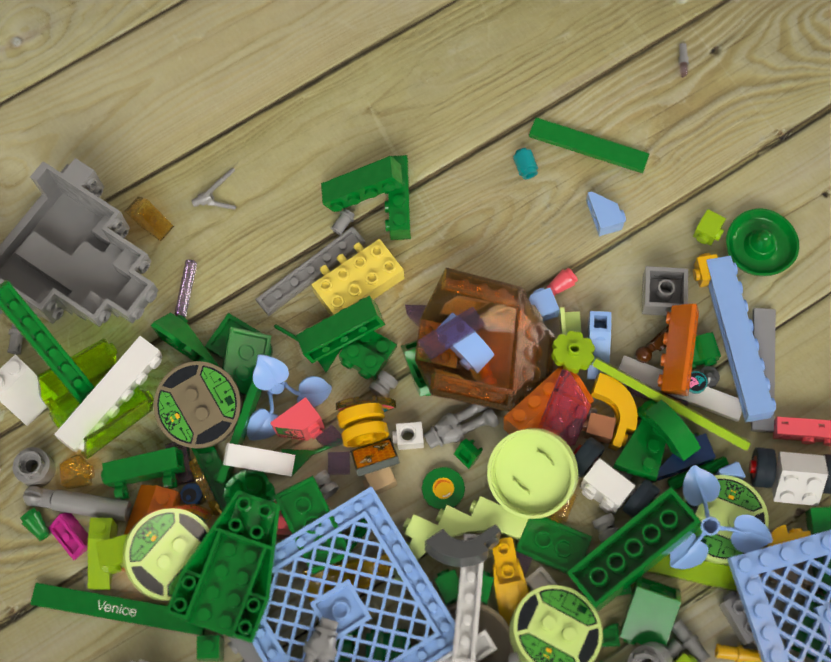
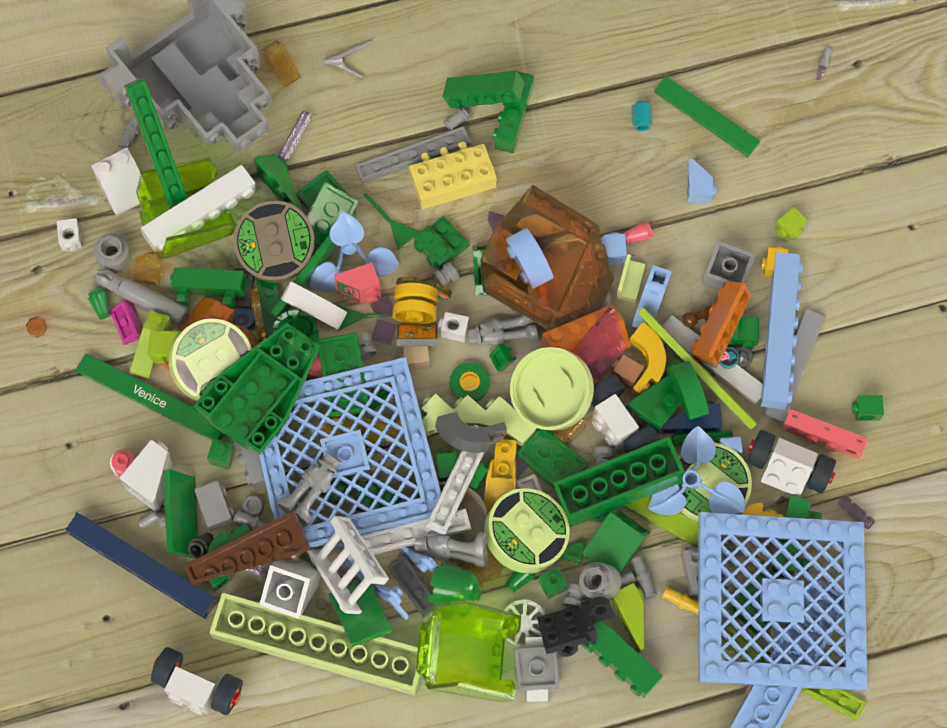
camera: 10 degrees right, 0 degrees up
(340, 329) = (422, 214): green brick -> none
(451, 333) = (519, 244): clear purple tile -> none
(573, 351) = (624, 296): lime plant -> none
(762, 242) = (834, 252): green hat -> none

